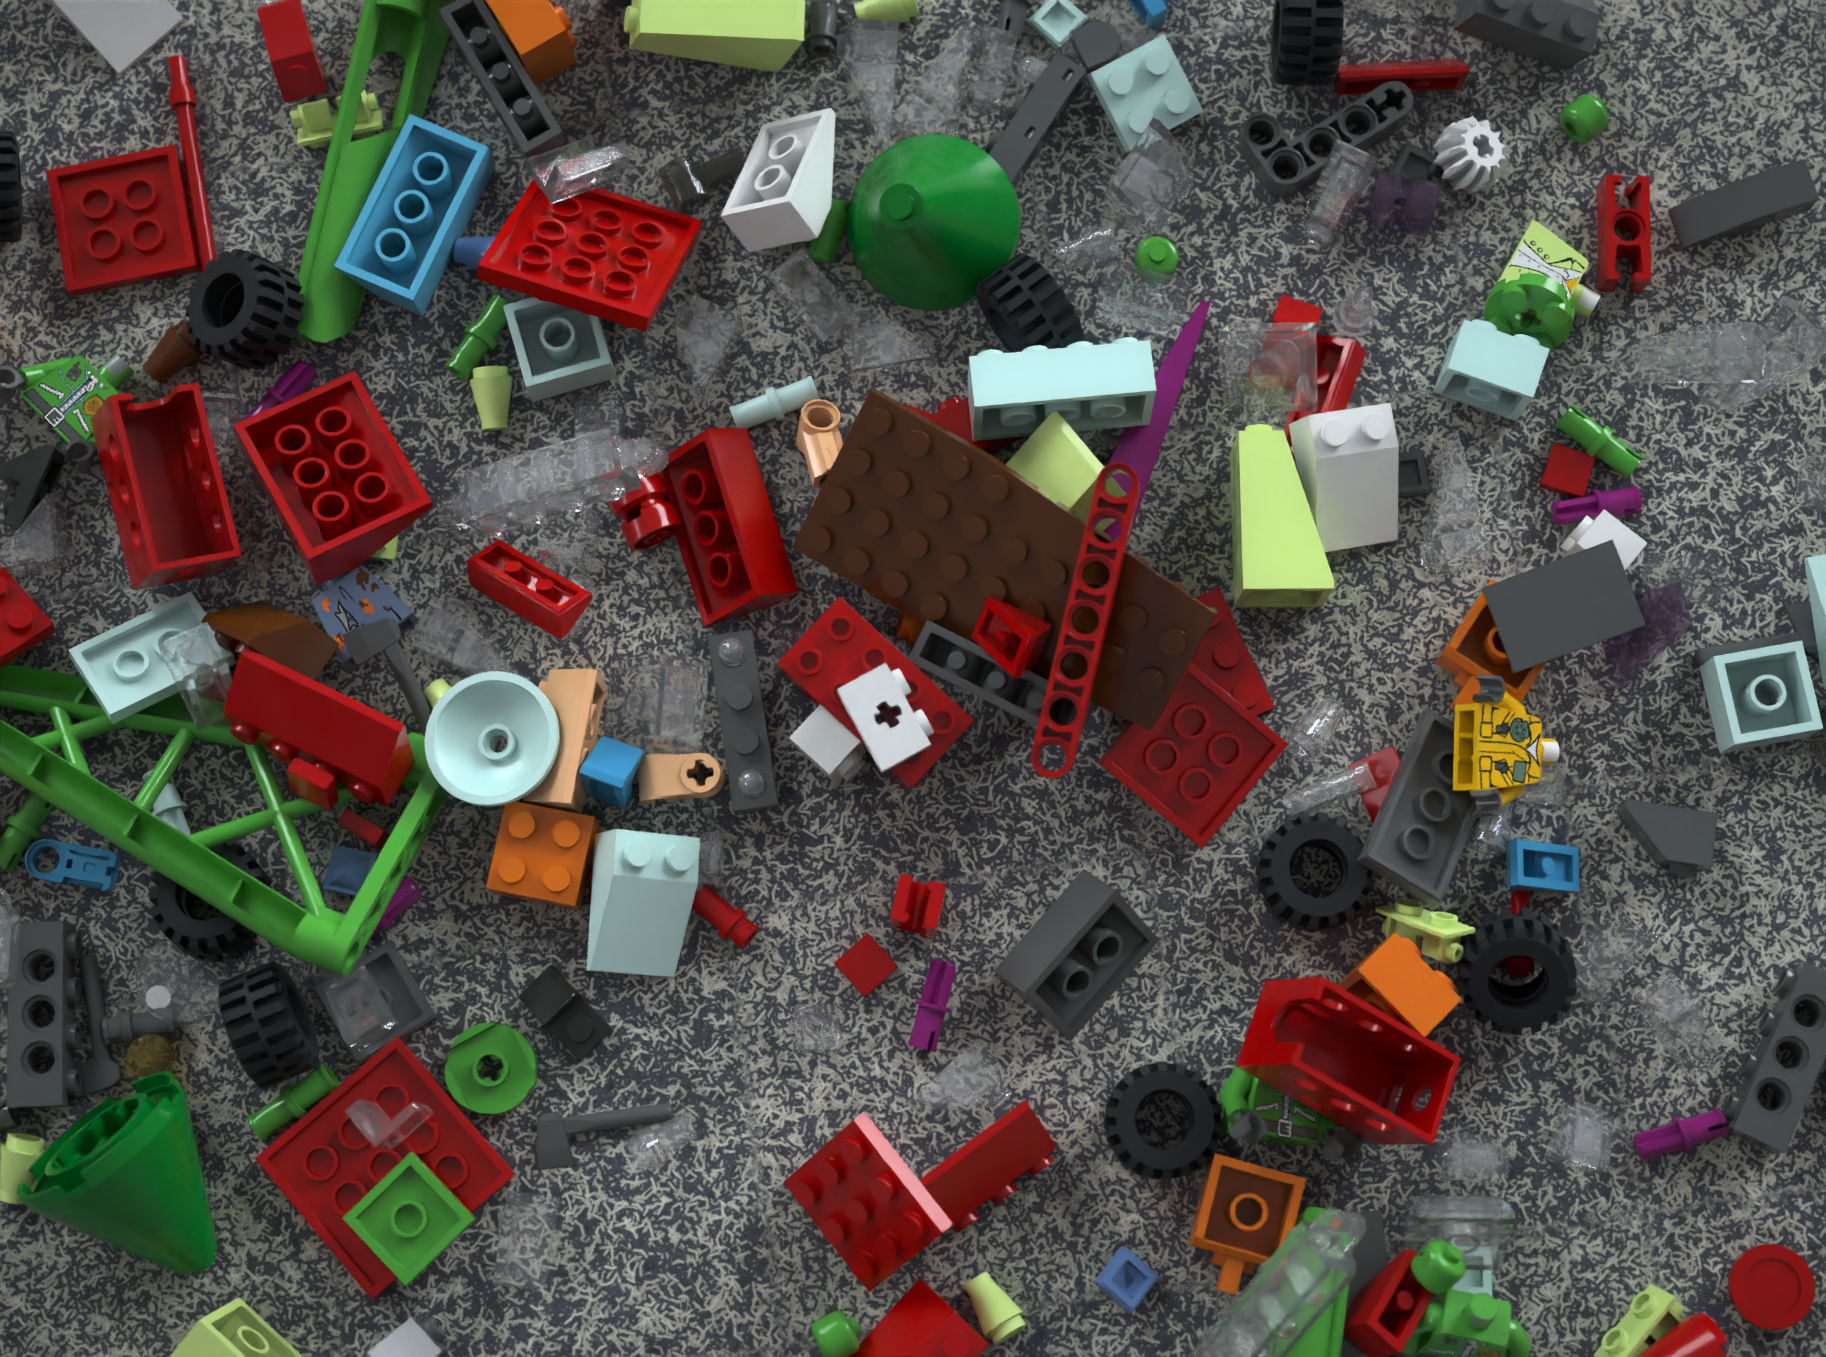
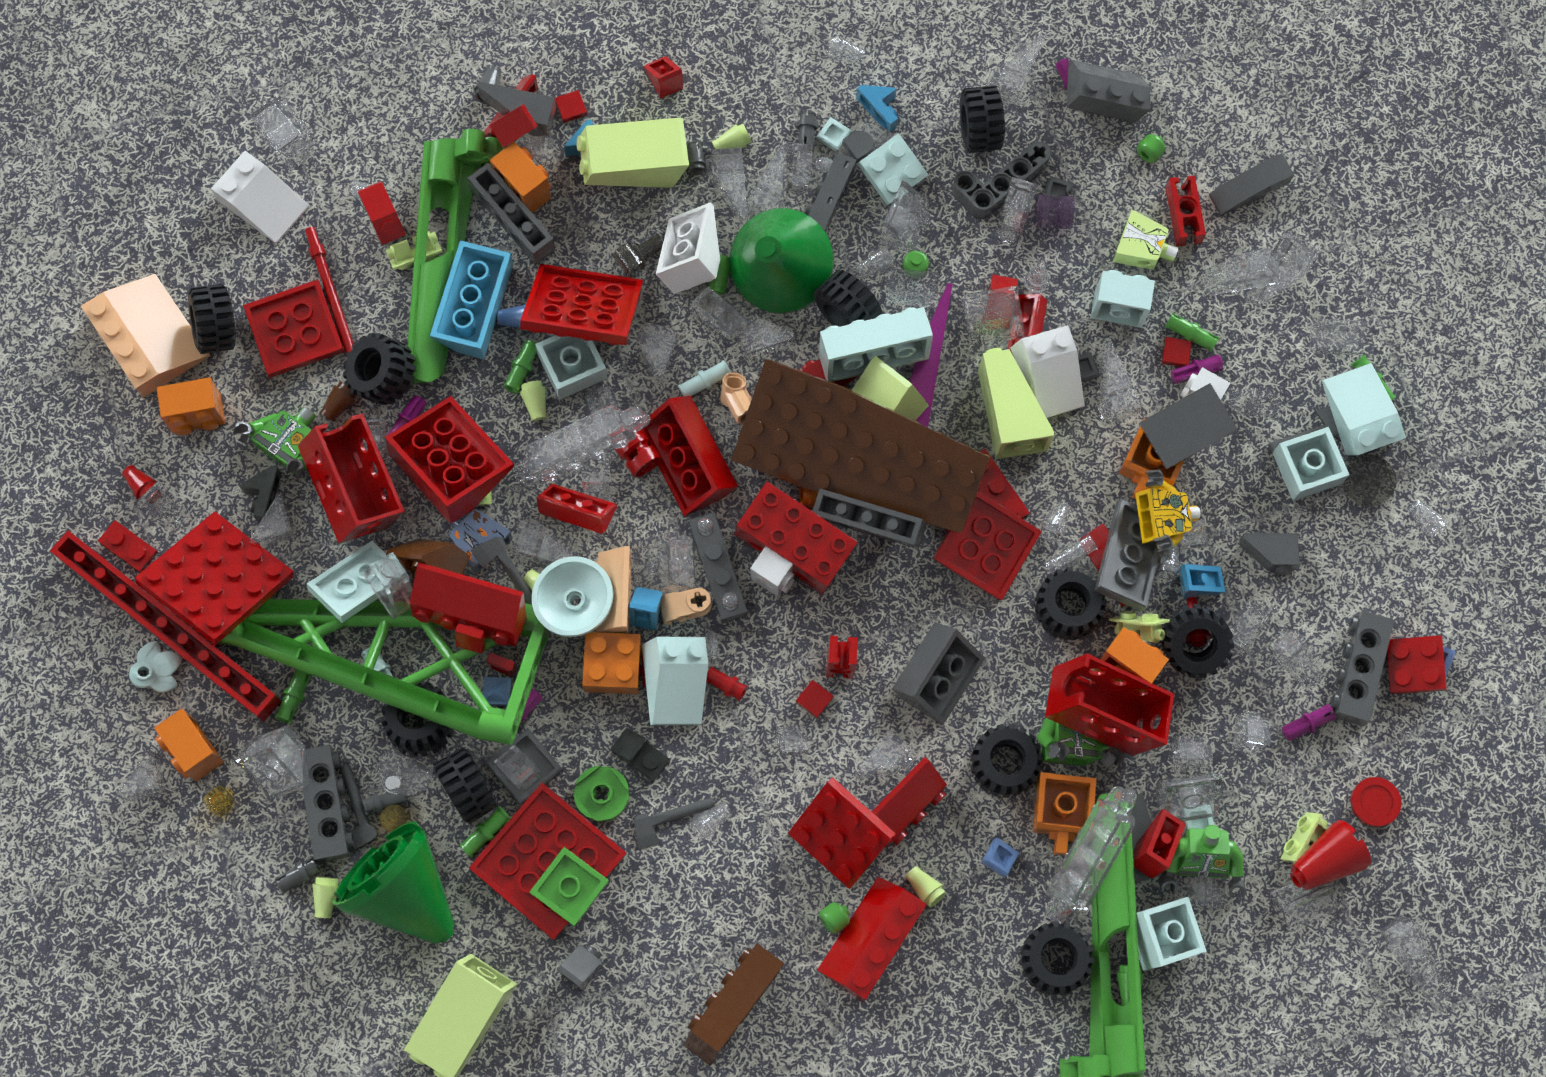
camera: 15 degrees left, 5 degrees down
(78, 863) = (330, 711): dark azure piece -> none
(380, 1128) = (548, 836): clear panel -> none
(526, 1240) = (640, 891): clear panel -> none
(578, 167) = (565, 258): clear panel -> none
(885, 744) = (807, 560): white brick -> none
(932, 1005) = (858, 716): magenta axle -> none
(1011, 636) = (870, 489): red slope -> none
(1082, 597) = (912, 458): red beam -> none
(1417, 75) = (1051, 137): red slope -> none
(1438, 1266) = (1182, 815): bright green piece -> none
(1471, 155) = (1089, 178): white gear -> none
(1534, 292) = (1136, 251): bright green plate -> none
(1666, 621) = (1238, 443): clear purple wing -> none

